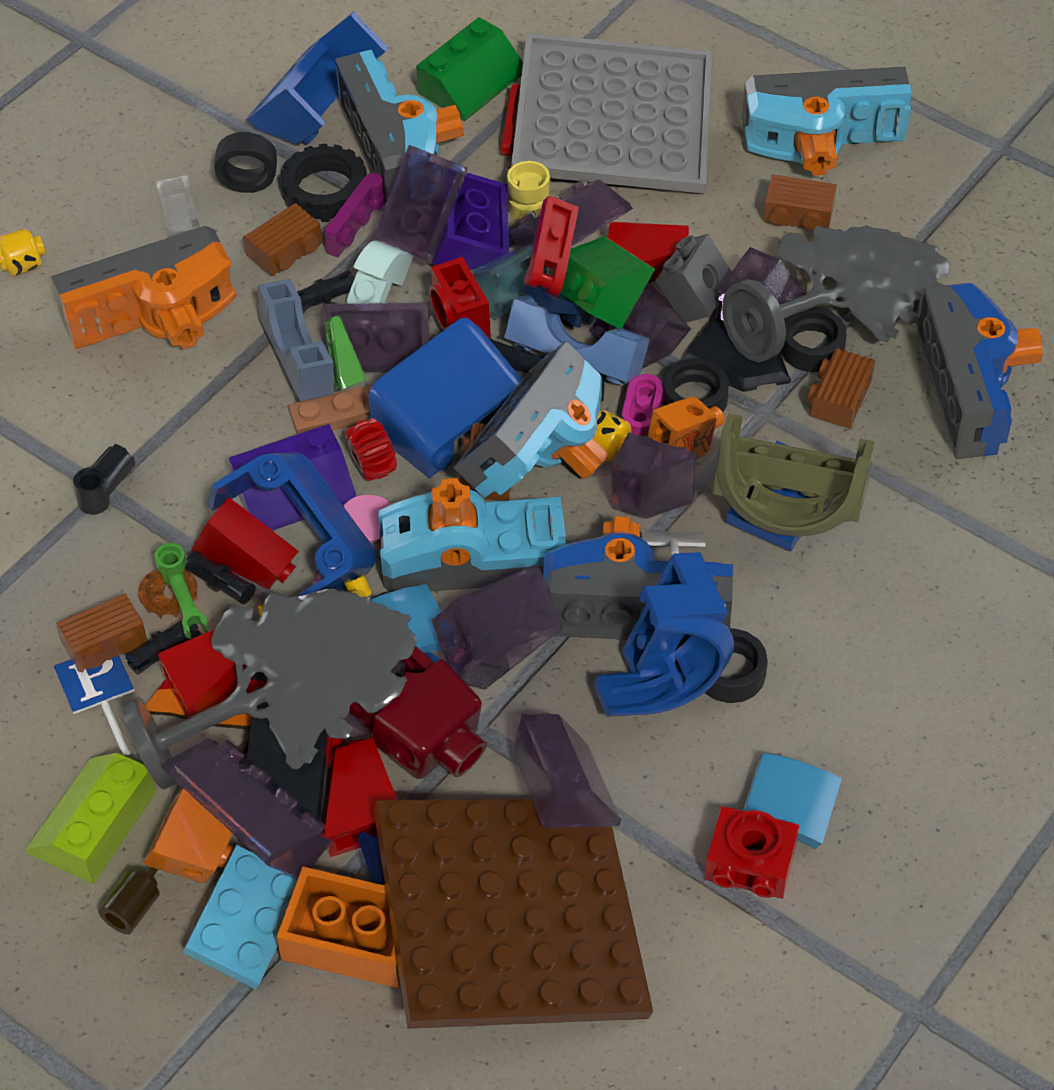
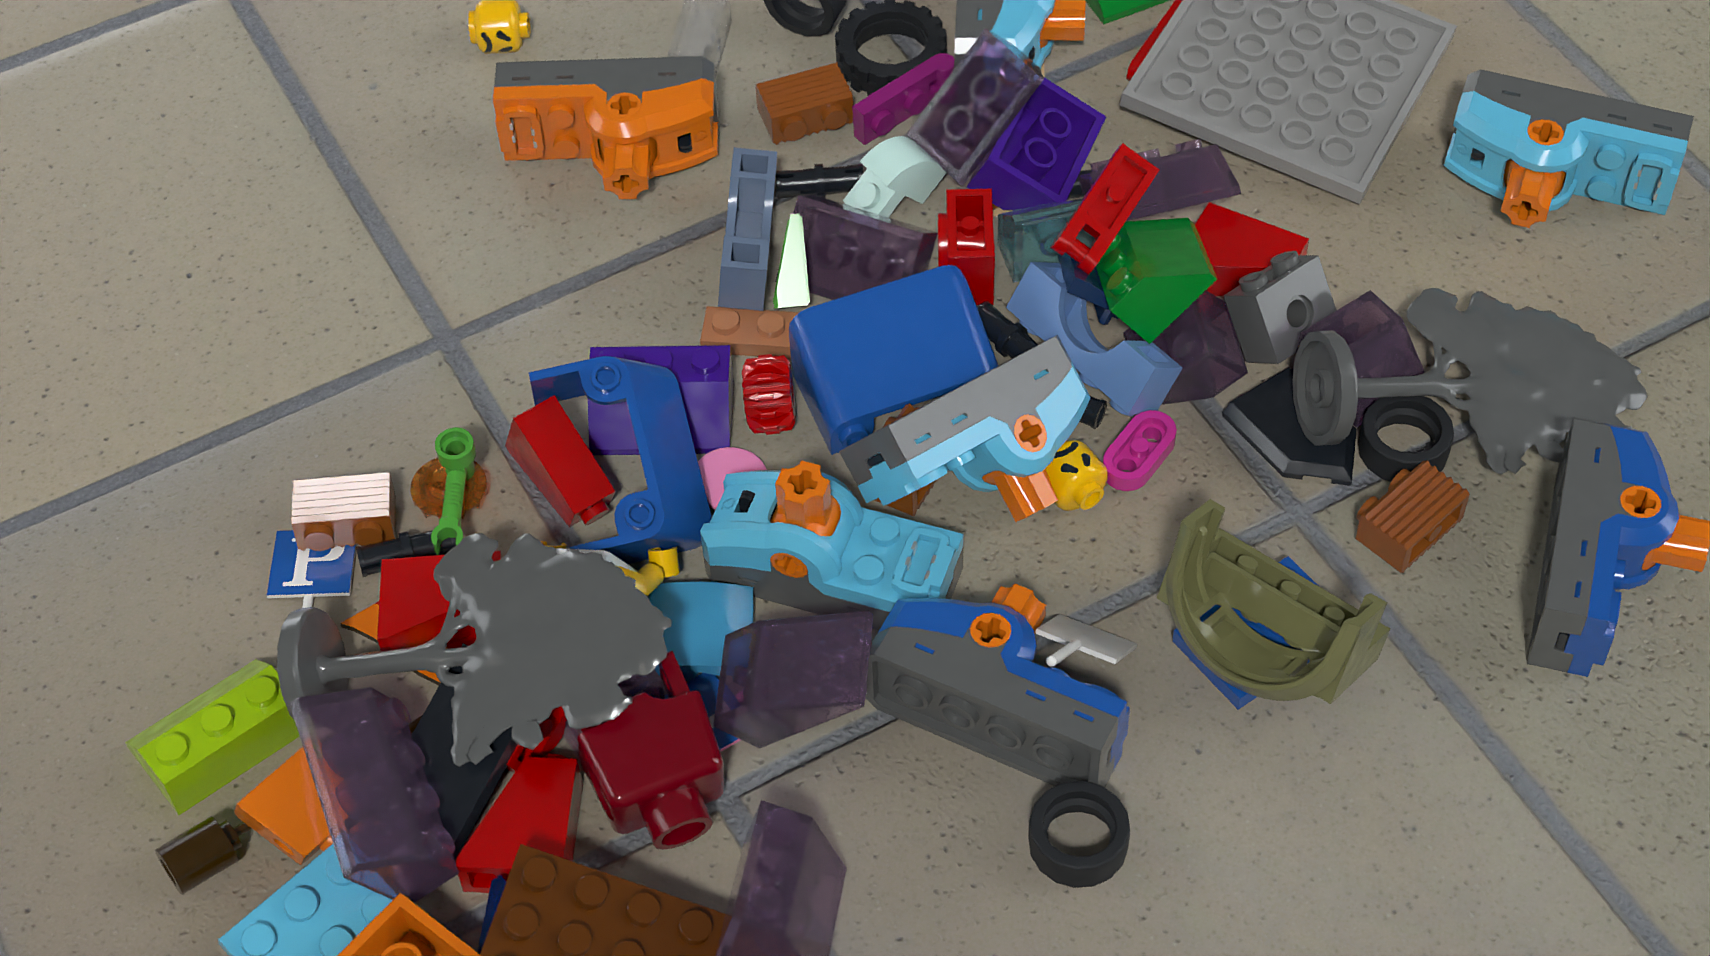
camera: 25 degrees right, 0 degrees up
(97, 482) = (432, 328): black piece -> none
(204, 567) = (516, 491): black pin -> none
(527, 187) = (1131, 121): light yellow wheel -> none
(652, 477) = (1094, 548): clear purple slope -> none
(678, 605) = (997, 754): blue piece -> none
(686, 425) = (1157, 499): orange torso -> none
(696, 371) = (1216, 426): black tyre -> none
(799, 202) = (1476, 253): dark orange brick -> none

